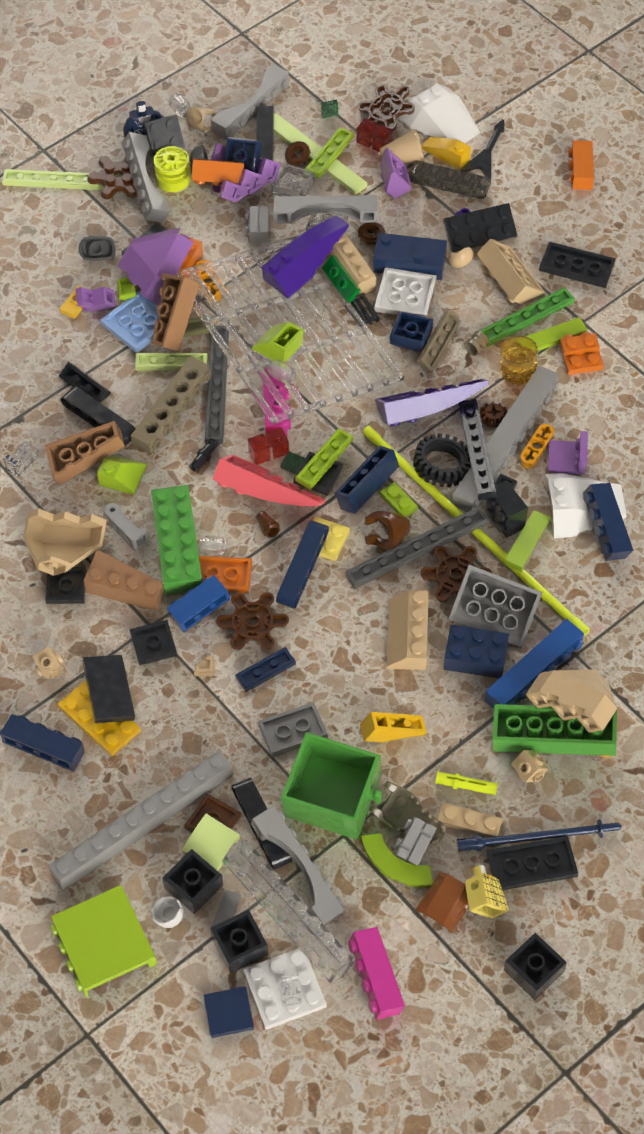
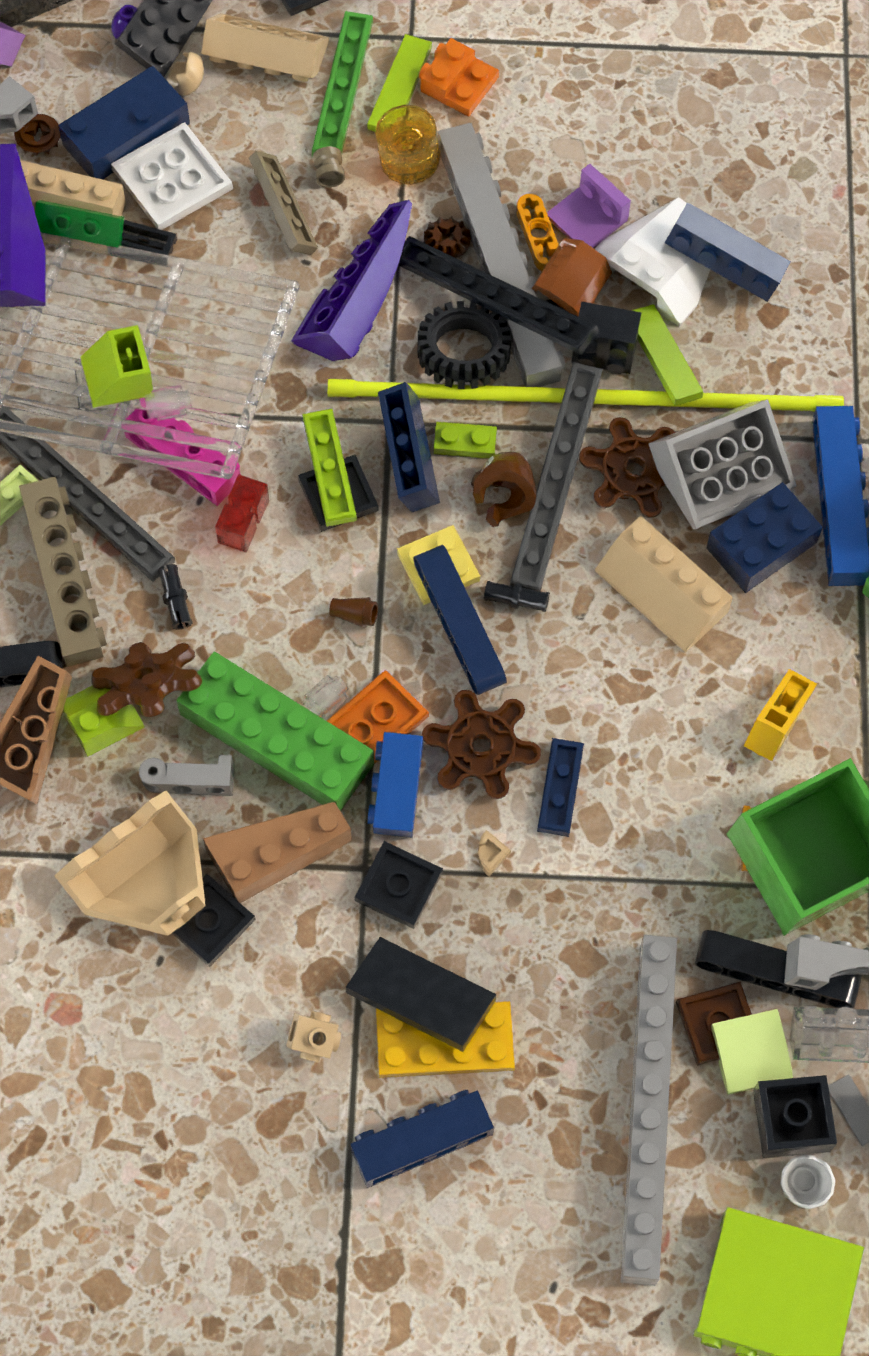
camera: 50 degrees left, 10 degrees up
(150, 470) = (145, 679): none -> reddish brown plate
(255, 481) = (274, 574): coral wedge -> none
(286, 730) = (675, 827): light grey tile -> none
(292, 462) = (289, 507): clear green tile -> none
(340, 579) = (516, 596): none -> black pin
(411, 331) = (254, 216): dark blue brick -> none
(525, 473) = (573, 275): none -> dark orange slope

